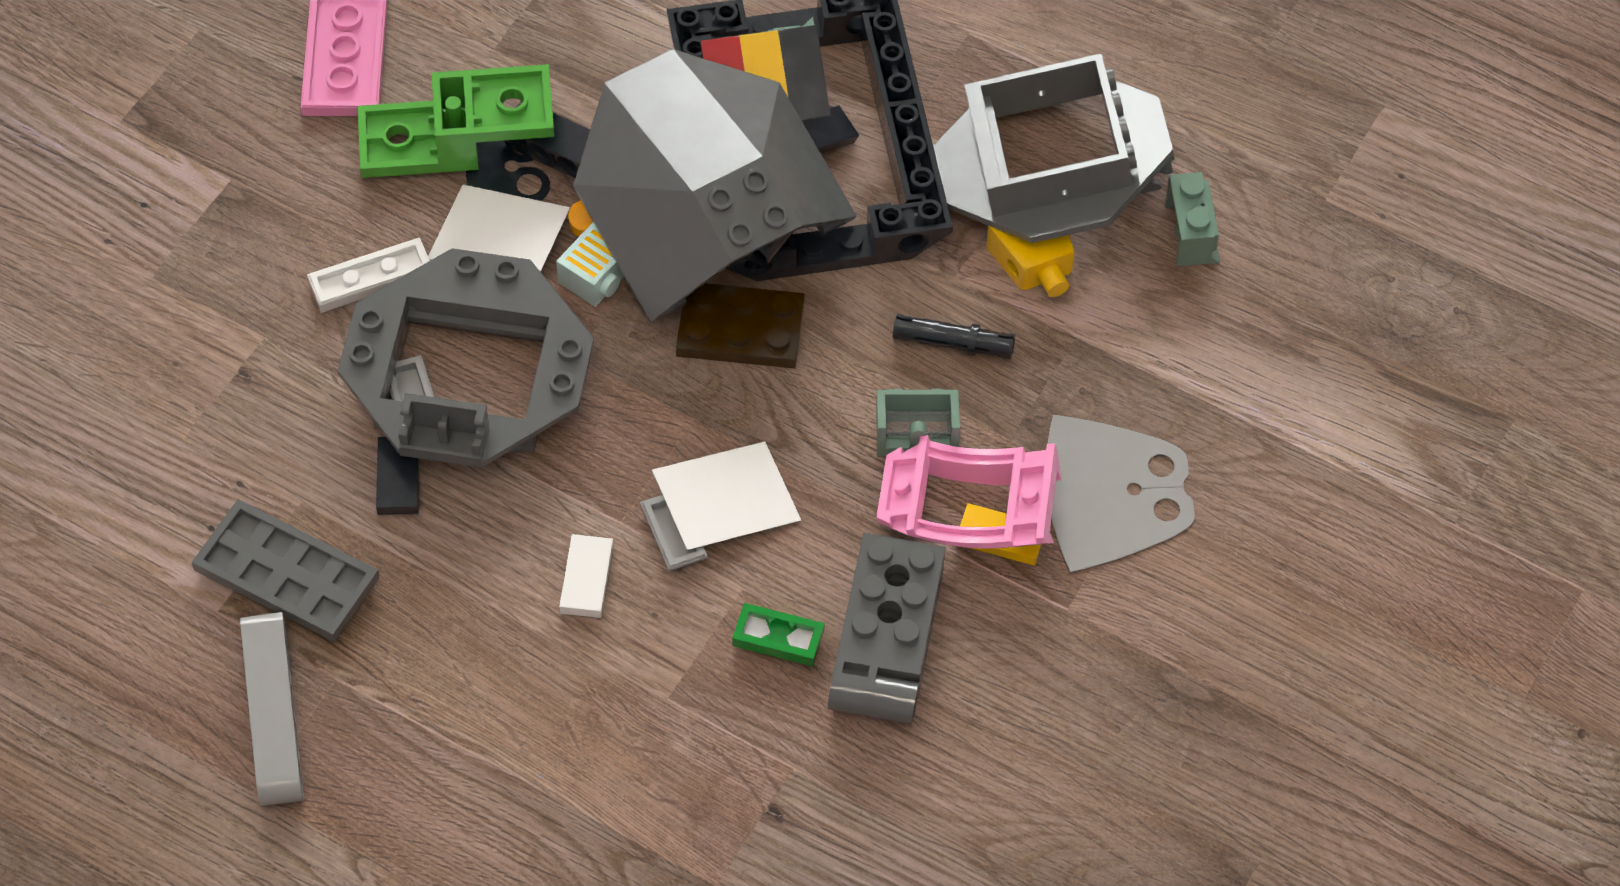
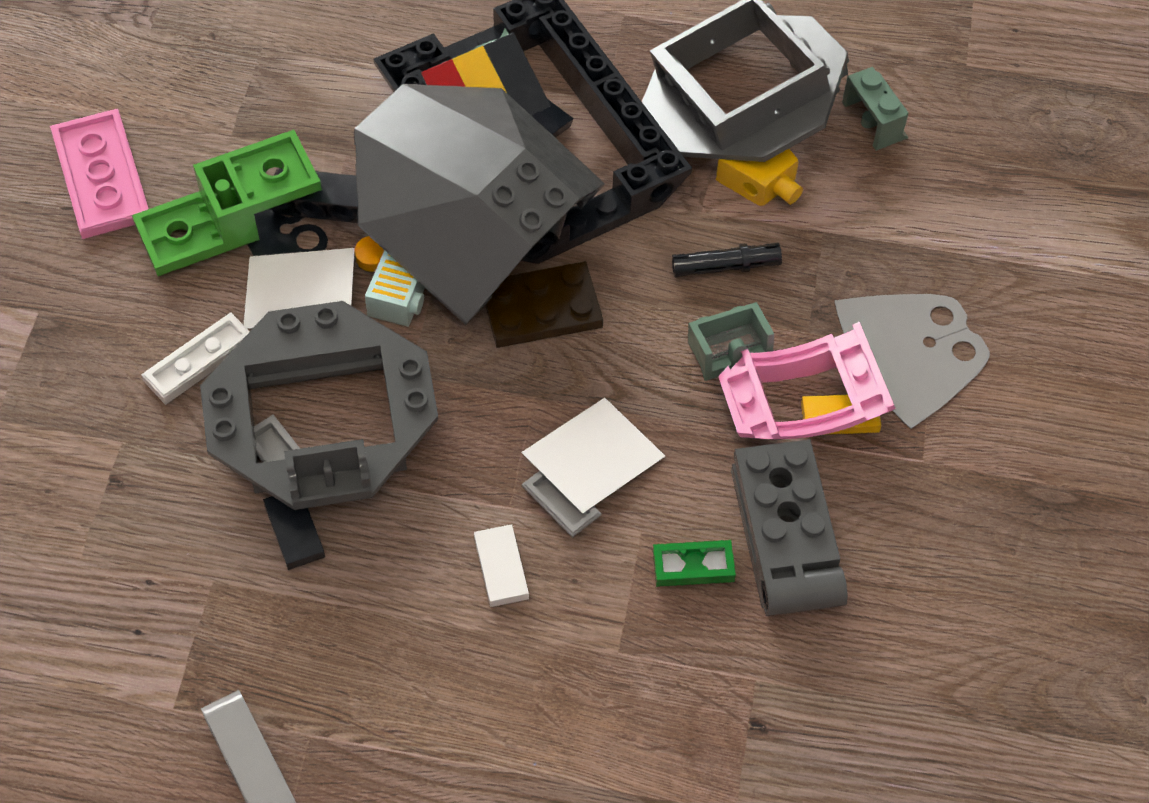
camera: 20 degrees left, 0 degrees up
(286, 570) = (224, 649): dark grey plate -> none

